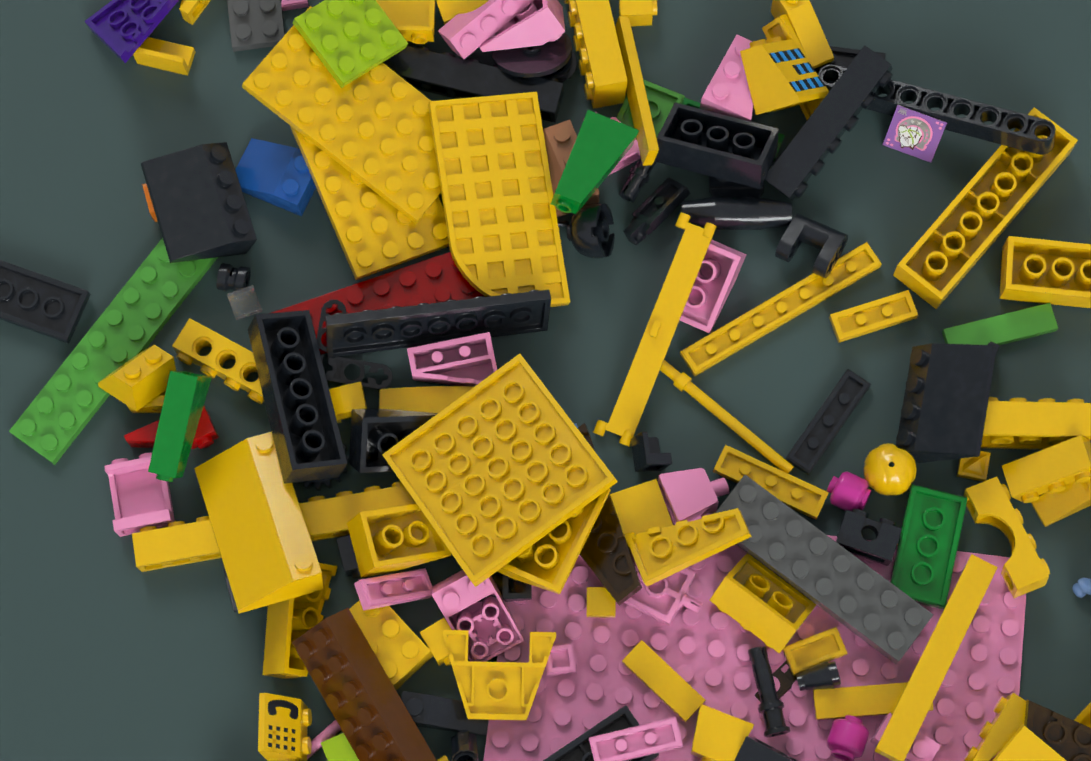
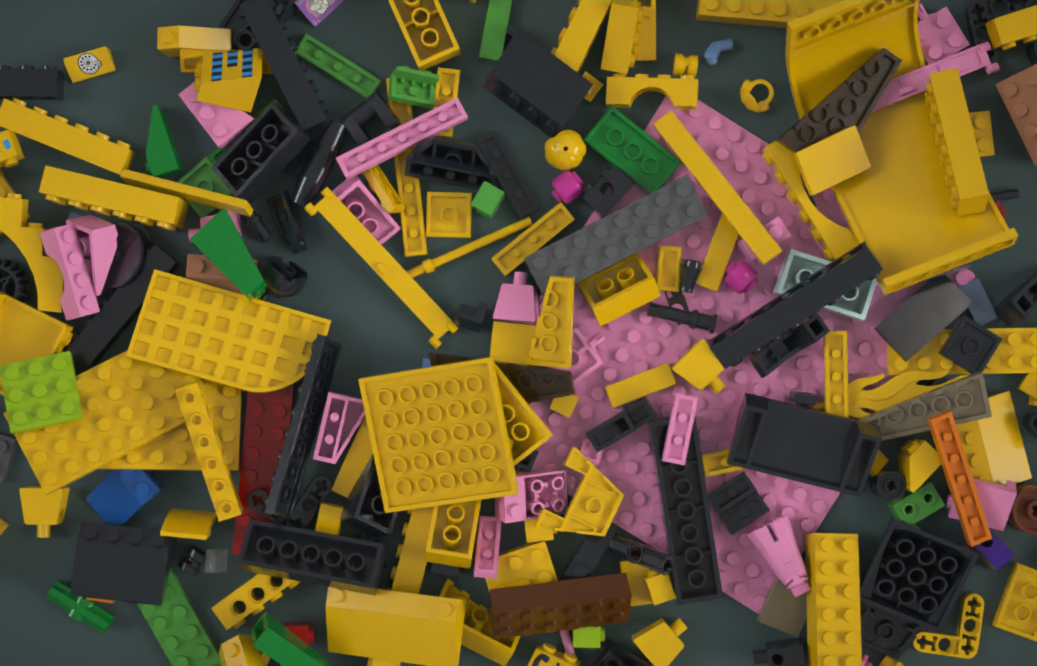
camera: 70 degrees left, 15 degrees up
(129, 185) = (80, 608): none -> green piece
(224, 100) = (43, 509): none -> yellow torso
(273, 253) = (188, 523): none -> yellow slope
(366, 231) = (209, 450): none -> yellow brick
(608, 678) = (621, 424): none -> black slope
(668, 46) = (161, 150): none -> green slope
(748, 285) = (382, 187): none -> yellow plate
(750, 378) = (448, 215): none -> yellow tile
(789, 408) = (487, 200): none -> bright green panel
(809, 350) = (450, 163): none -> black wedge
(810, 284) = (401, 138): none -> bright pink plate
(853, 186) = (337, 66): none -> bright green tile
(872, 271) = (413, 86): none -> bright green bracket
(1056, 650) = (749, 101): none -> yellow piece
(1057, 561) = (685, 65): none -> yellow wheel

